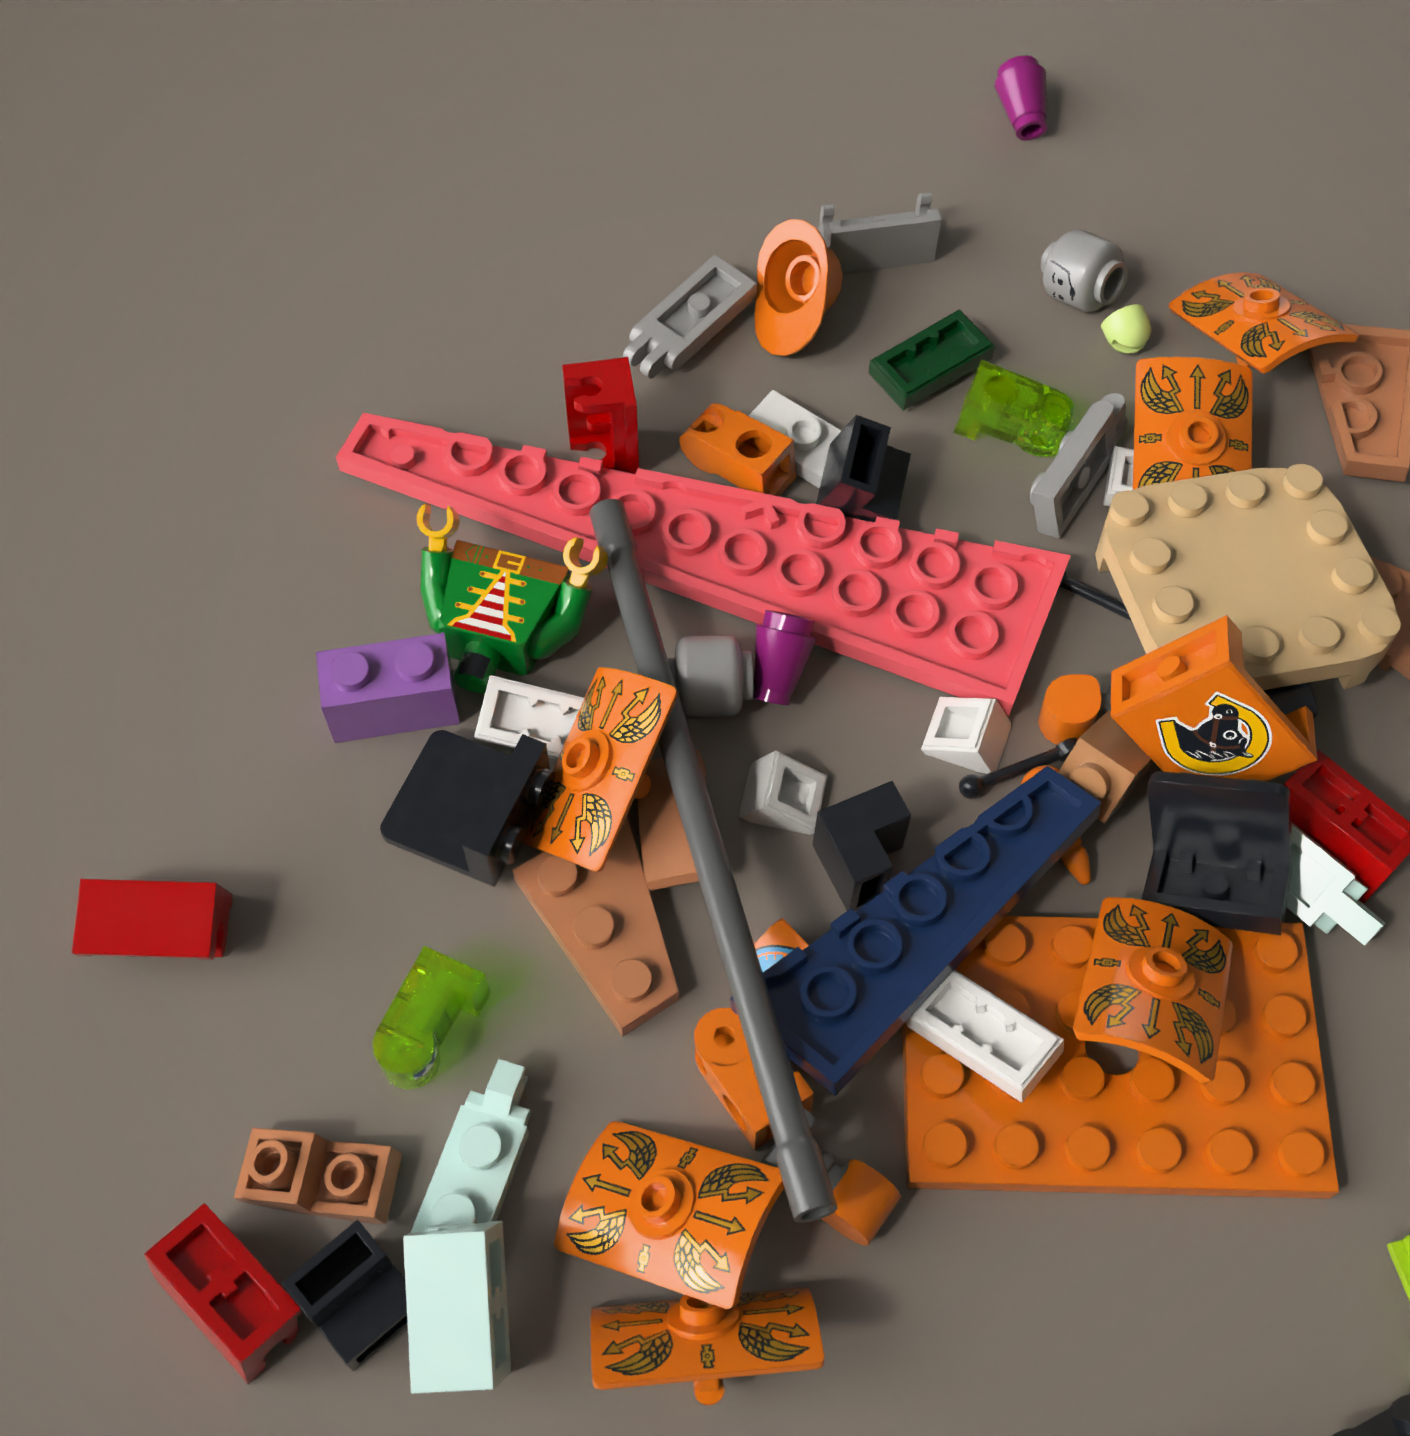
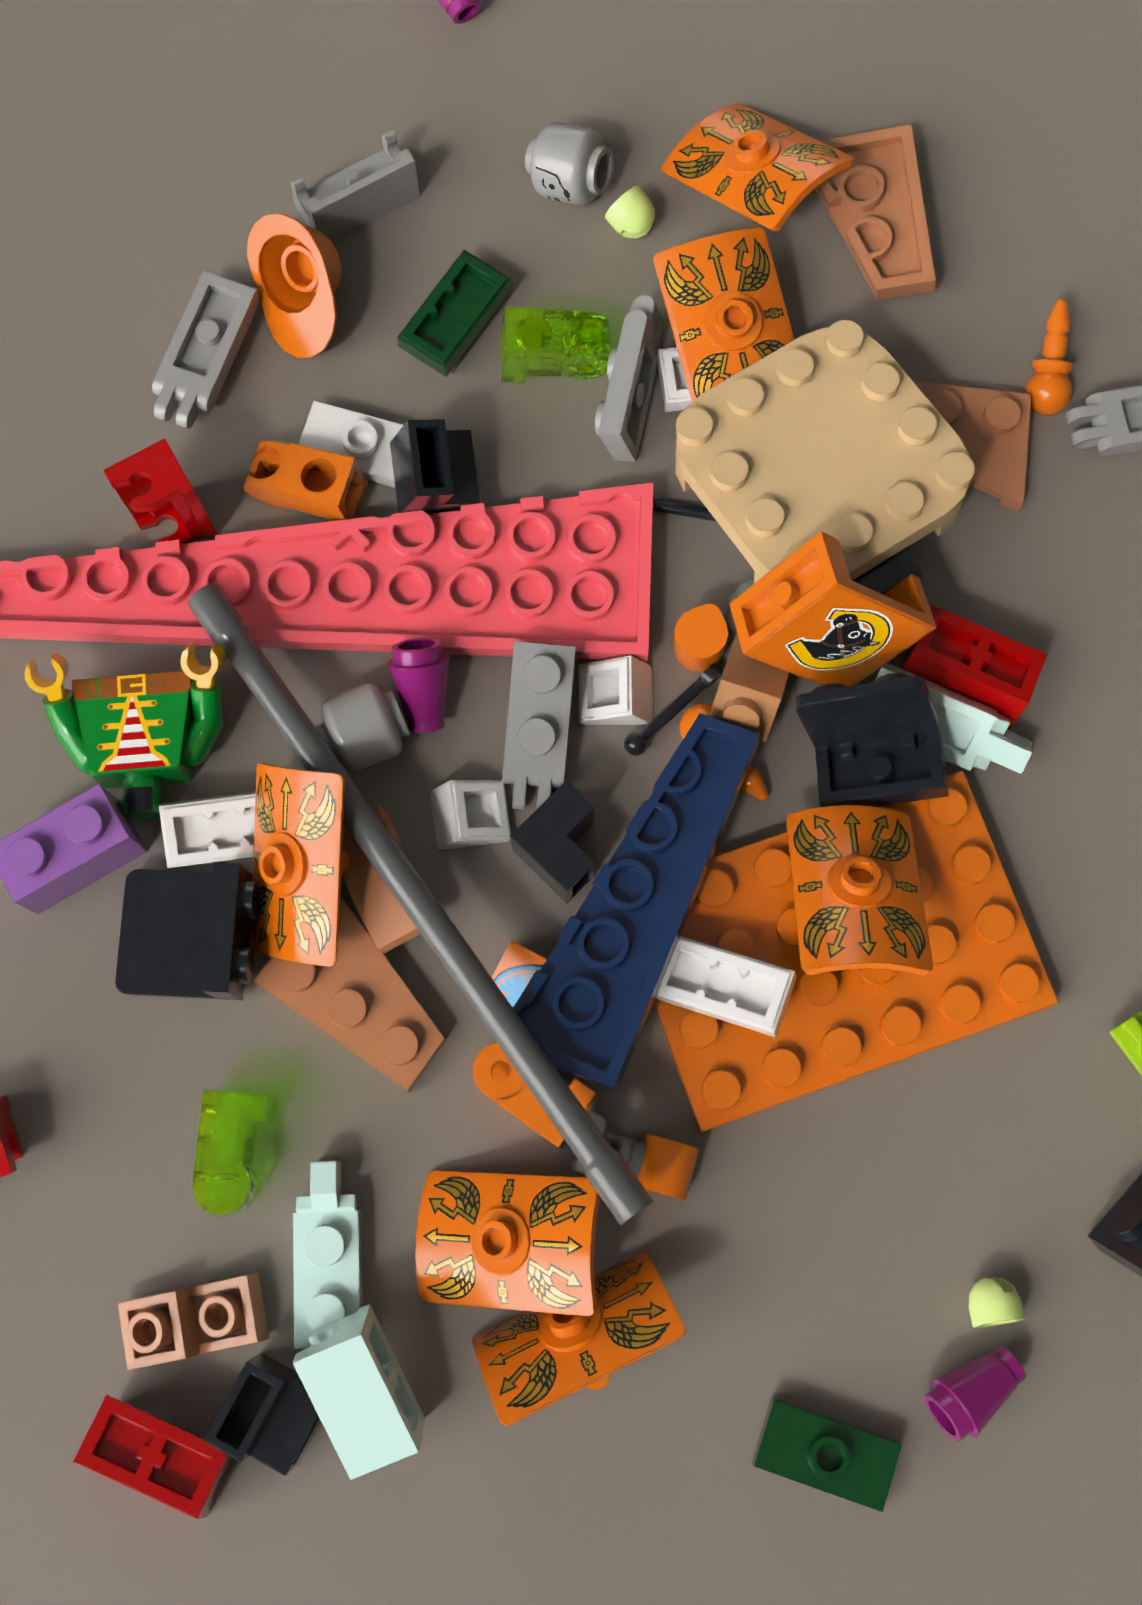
camera: 20 degrees left, 15 degrees up
(883, 722) = (538, 719): none -> light grey hinge

